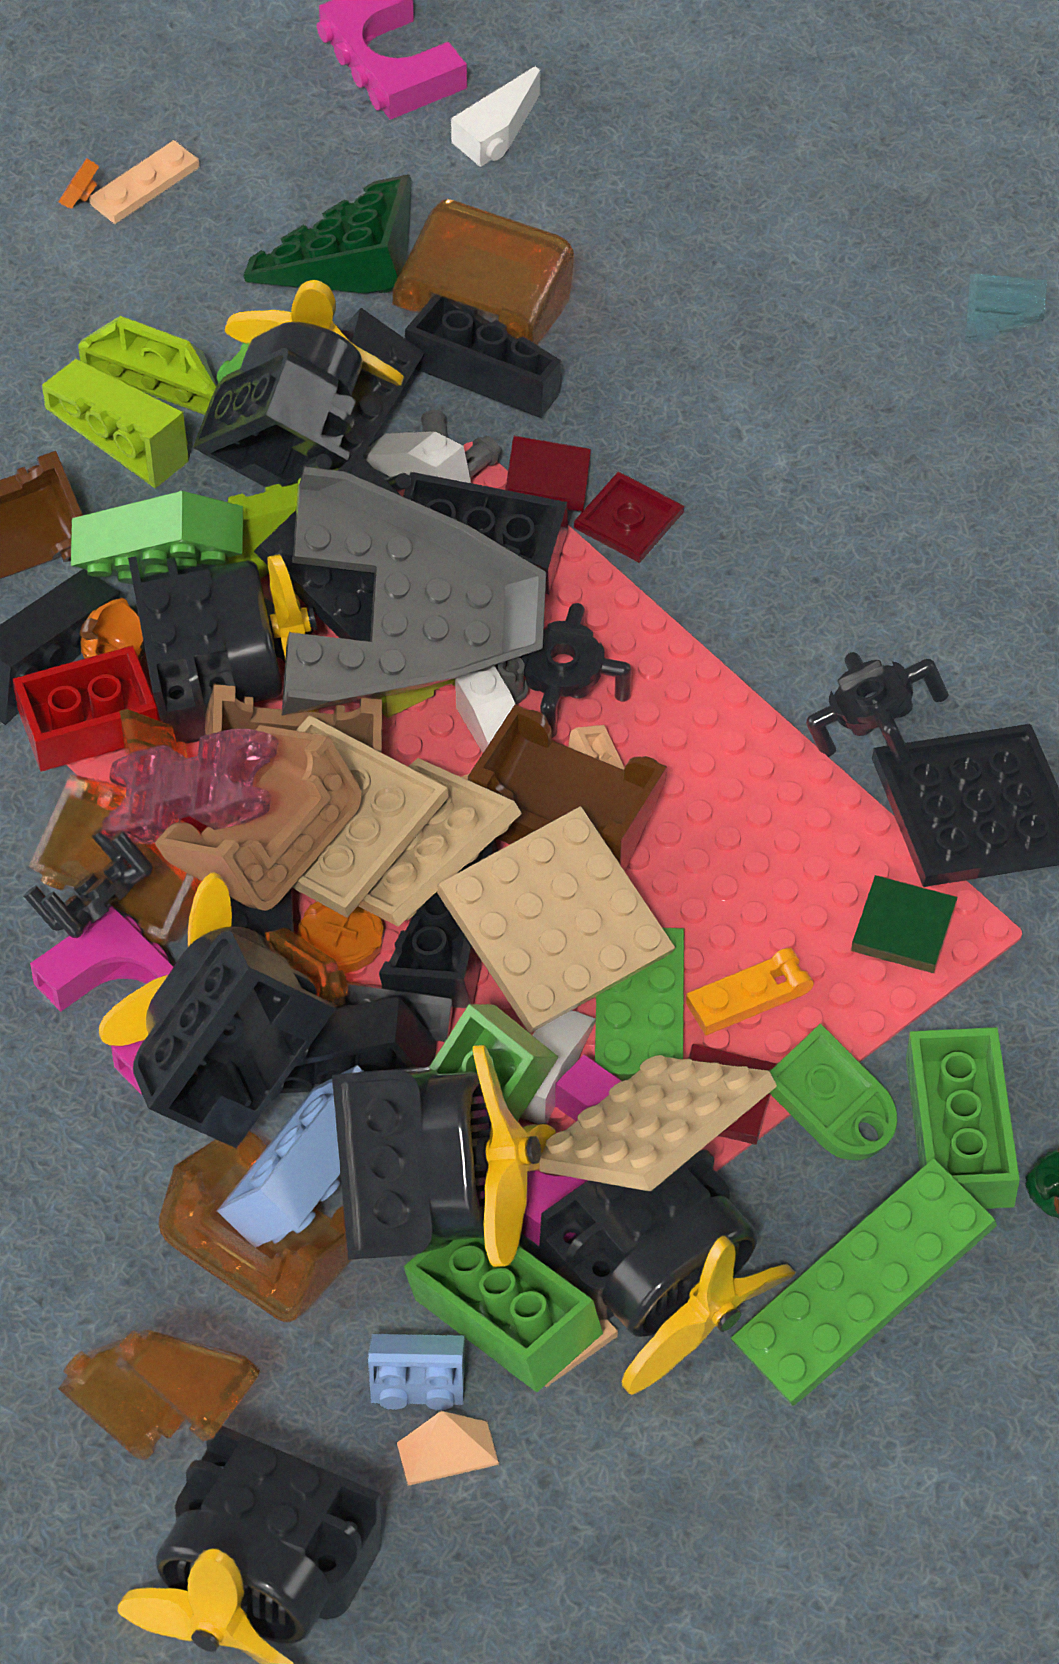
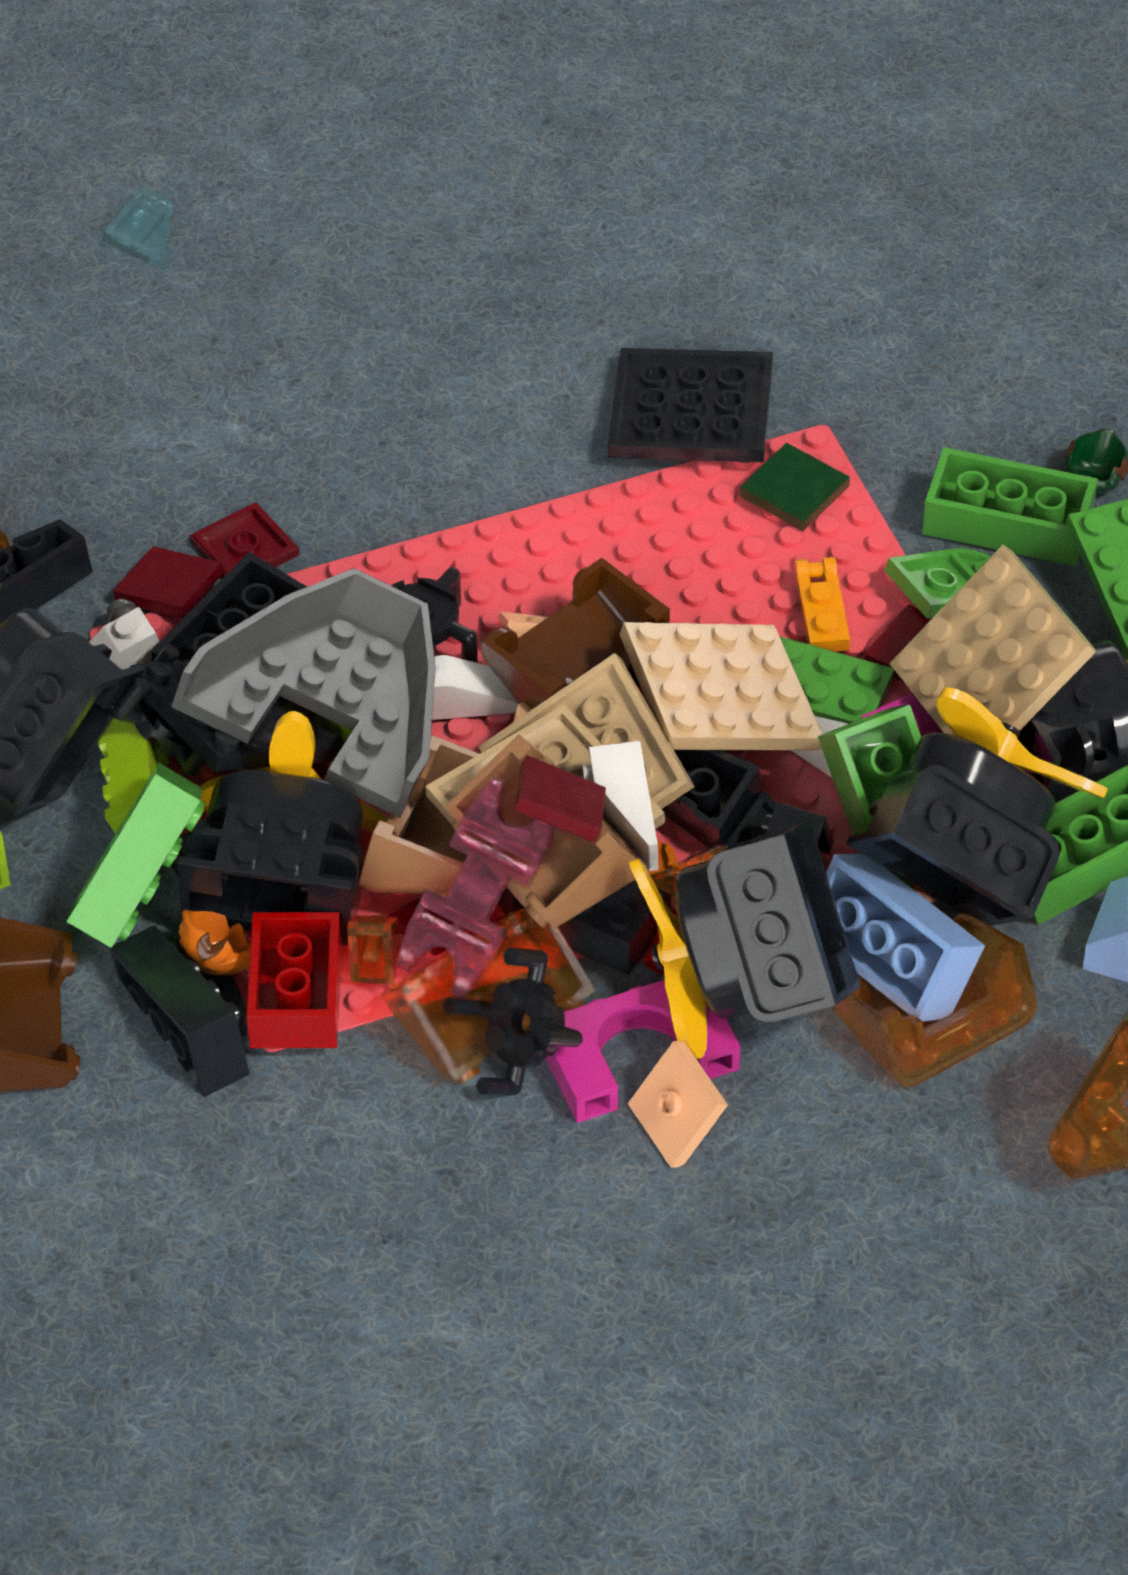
camera: 70 degrees left, 5 degrees down
(54, 1044) = (677, 1104): none -> light nougat plate
(268, 795) = (560, 798): none -> dark red tile
(334, 864) = (626, 796): none -> white slope
(864, 713) = (575, 438): black plate -> none

